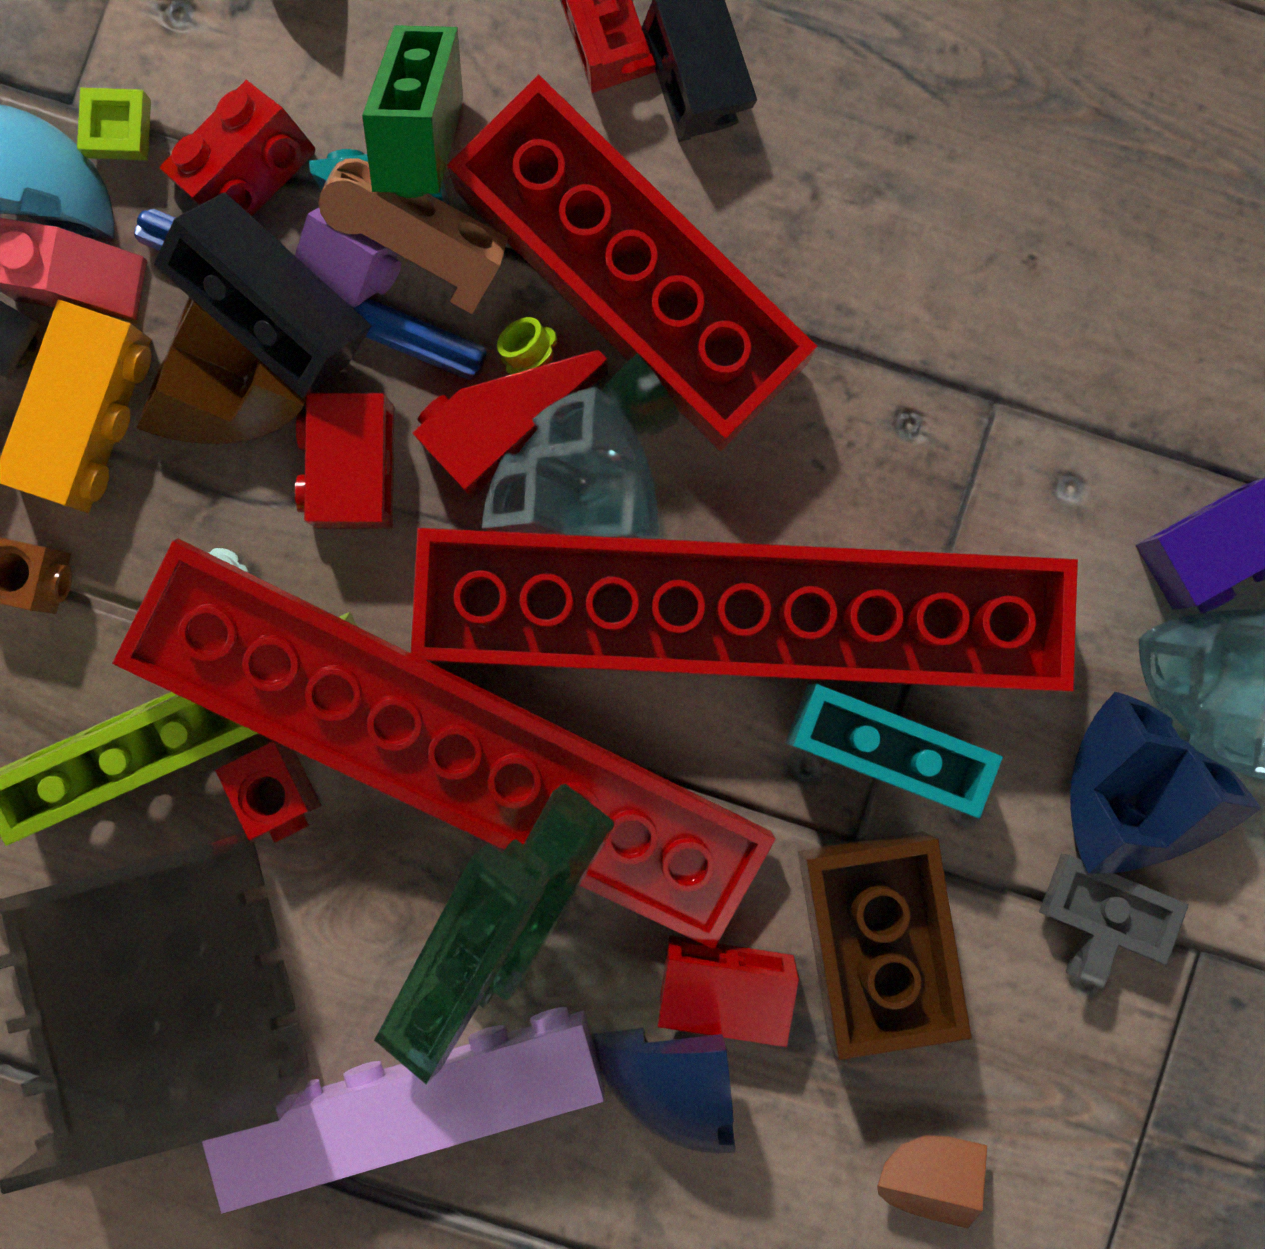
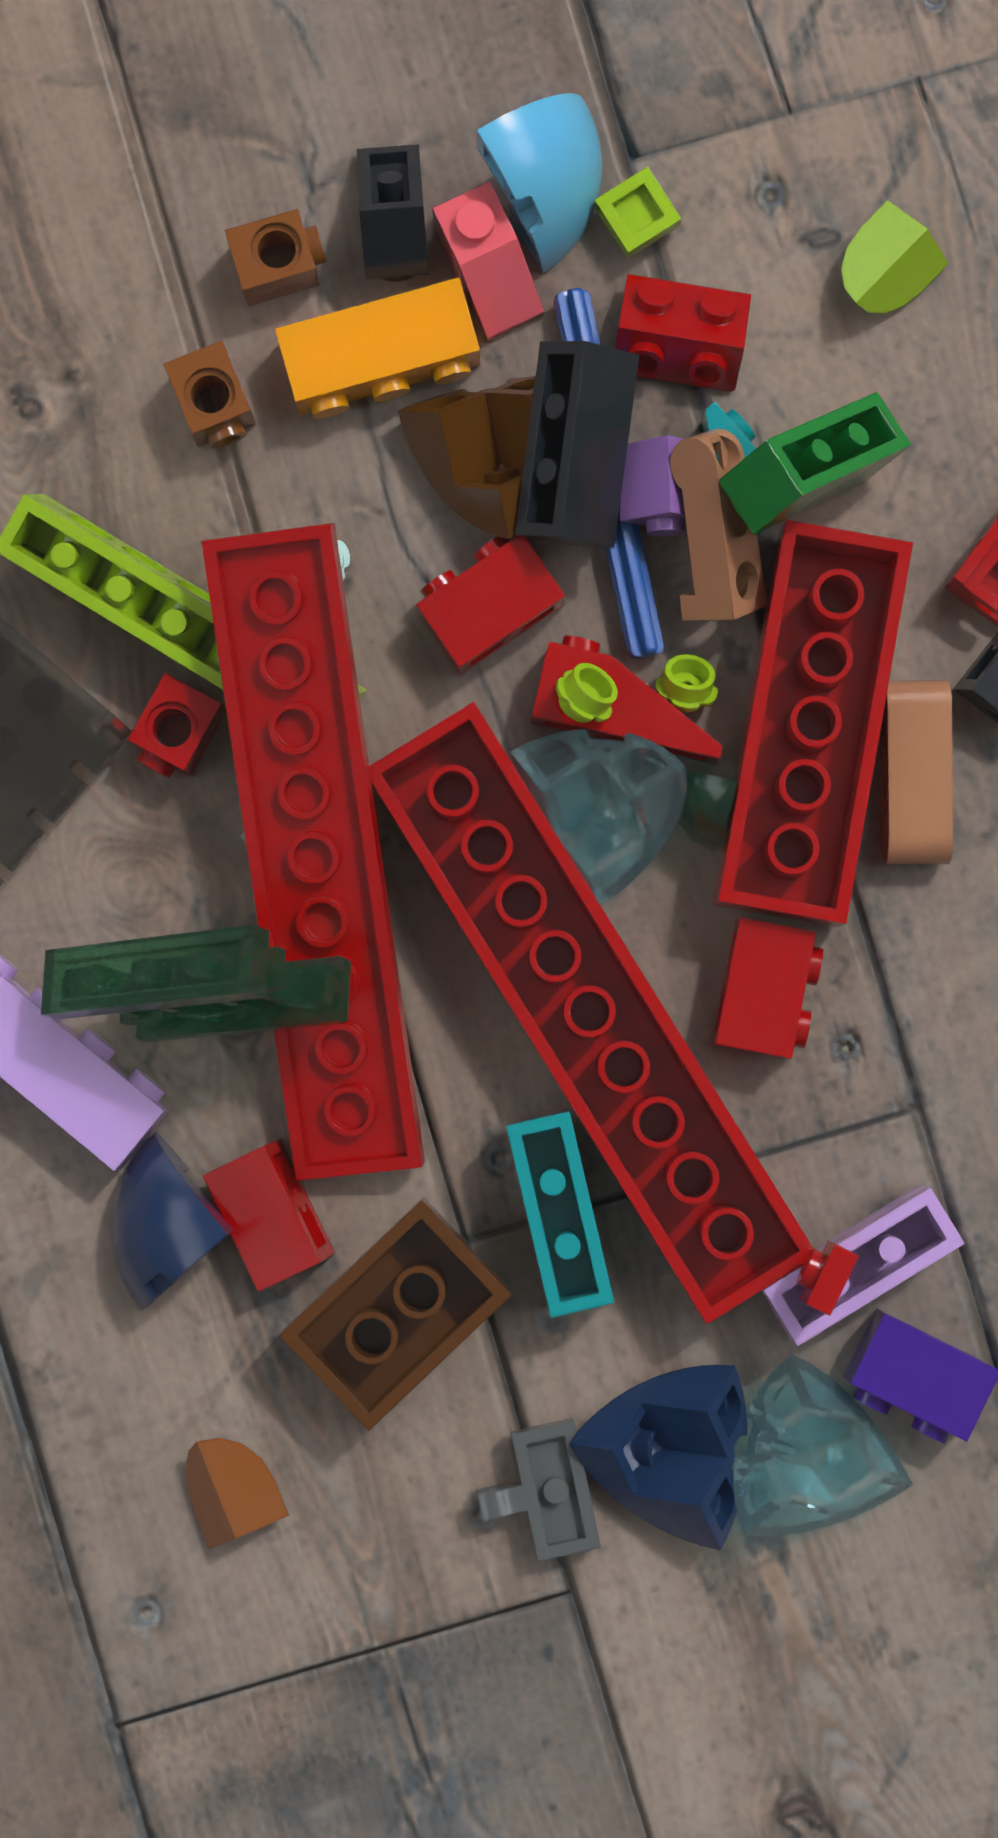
camera: 55 degrees right, 0 degrees up
(476, 429) = (586, 693): none -> lime plate
(733, 212) = (917, 773): none -> nougat beam
(820, 453) = (766, 988): none -> red brick
(1105, 524) = (890, 1248): none -> lavender brick
(1108, 562) = (825, 1276): none -> red plate

